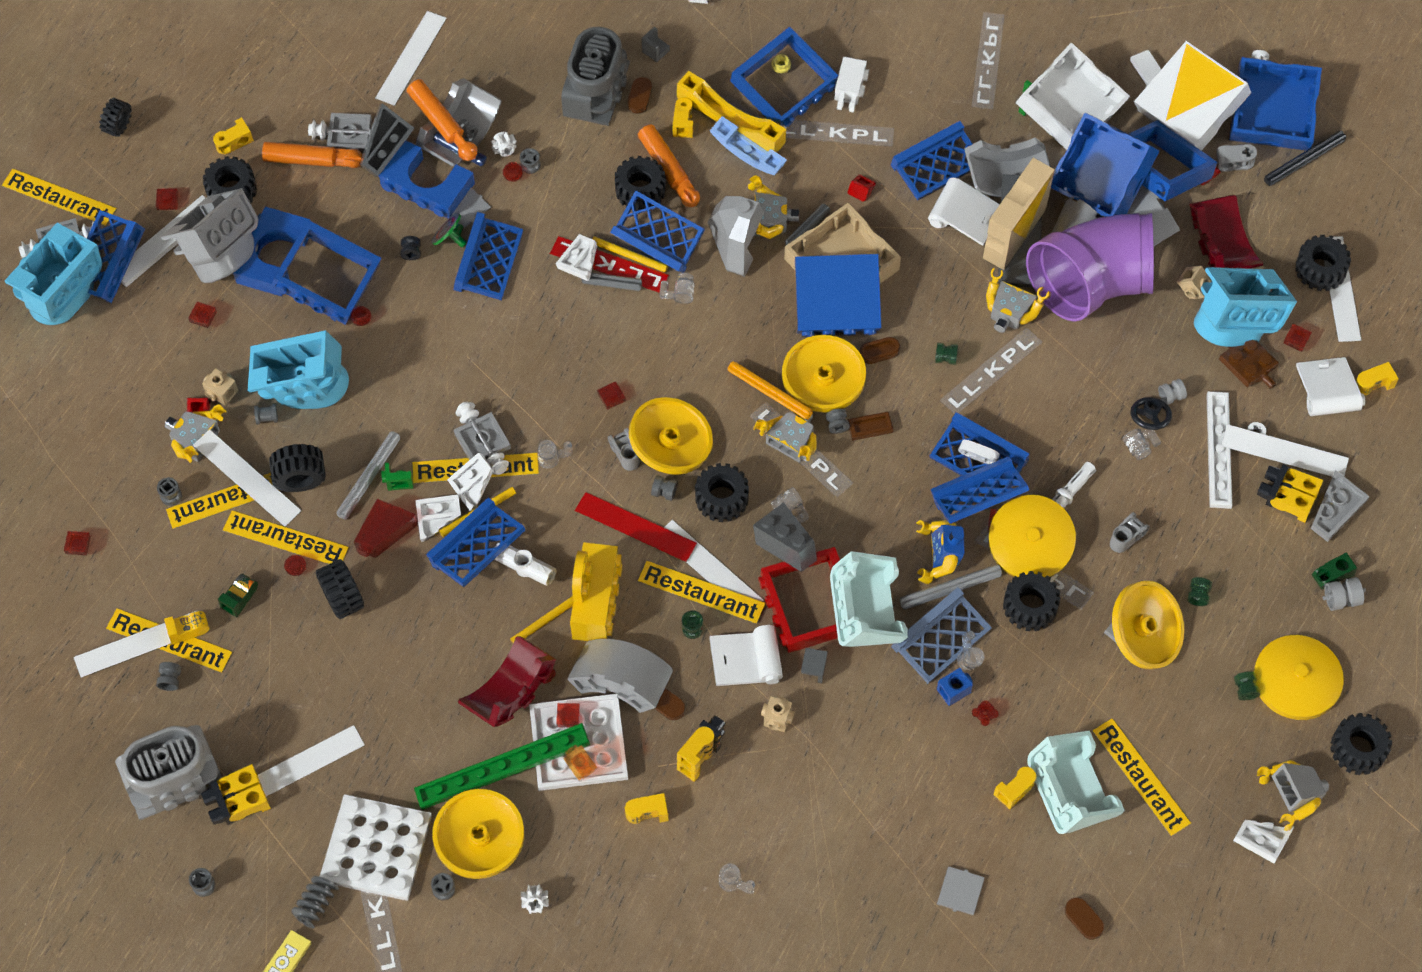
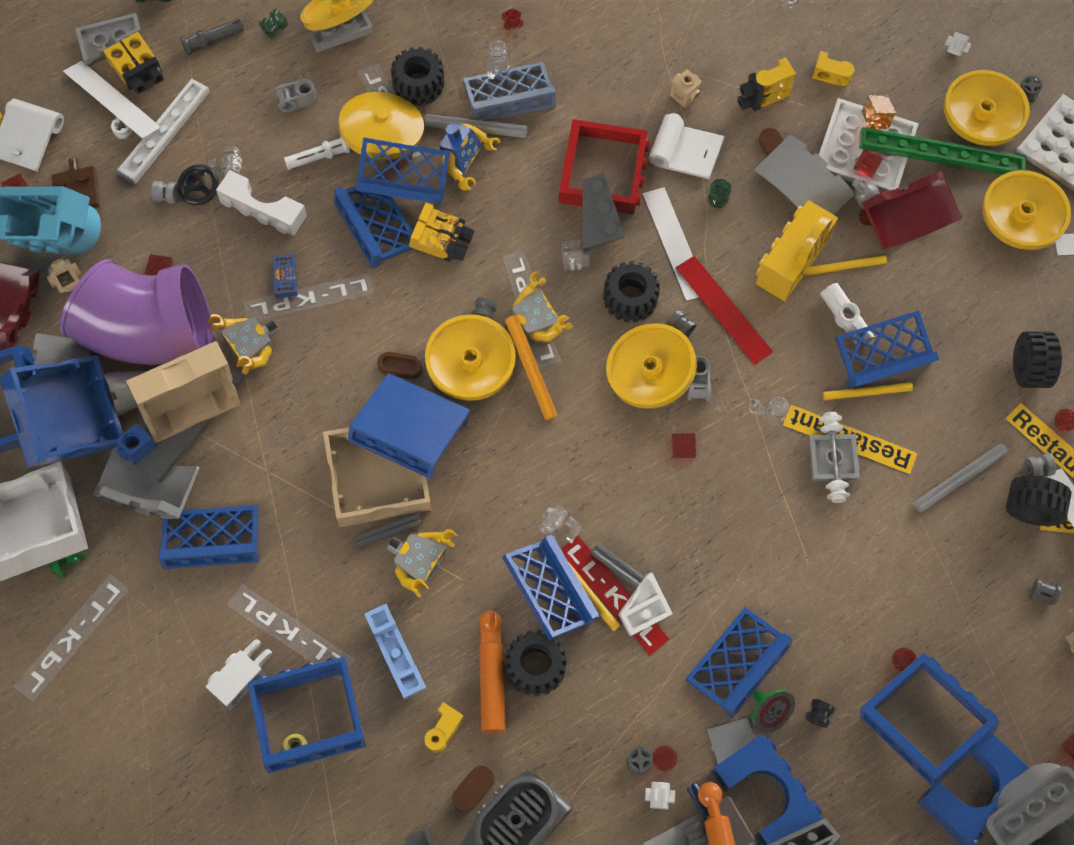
camera: 155 degrees left, 5 degrees up
(299, 371) = (1005, 604): medium azure brick -> none
(305, 510) = (1040, 466): none -> light grey wheel
(383, 528) = (967, 412): clear red slope -> none
(398, 480) = (936, 454): green bracket -> none
(399, 740) = (1026, 210): none -> yellow dish
(436, 514) = (909, 404): white wing -> none
(472, 480) = (863, 417): white wing -> none
(557, 688) = (864, 191): none -> light grey piece
(701, 592) = (694, 225): yellow sticker -> none
(704, 99) = (390, 701): yellow arch -> none
(733, 228) = (470, 549): light grey brick -> none
(814, 663) = (631, 111): dark grey panel -> none
(861, 187) = (304, 549): red slope -> none
(864, 600) = (567, 121): light aqua windscreen -> none
(870, 426) = (454, 297): reddish brown tile -> none
(916, 465) = (439, 234): none -> hips
(946, 353) = (339, 324): clear green wheel -> none
(950, 694) = (529, 39): blue brick -> none
(963, 210) = (223, 465): white door -> none
(978, 452) = (377, 212): white beam -> none
(1022, 375) = (285, 275): none -> tile
(1111, 419) = (284, 214): none -> white arch
(1130, 334) = (157, 263): none -> clear red plate
(1251, 546) = (202, 39): none -> dark grey pin

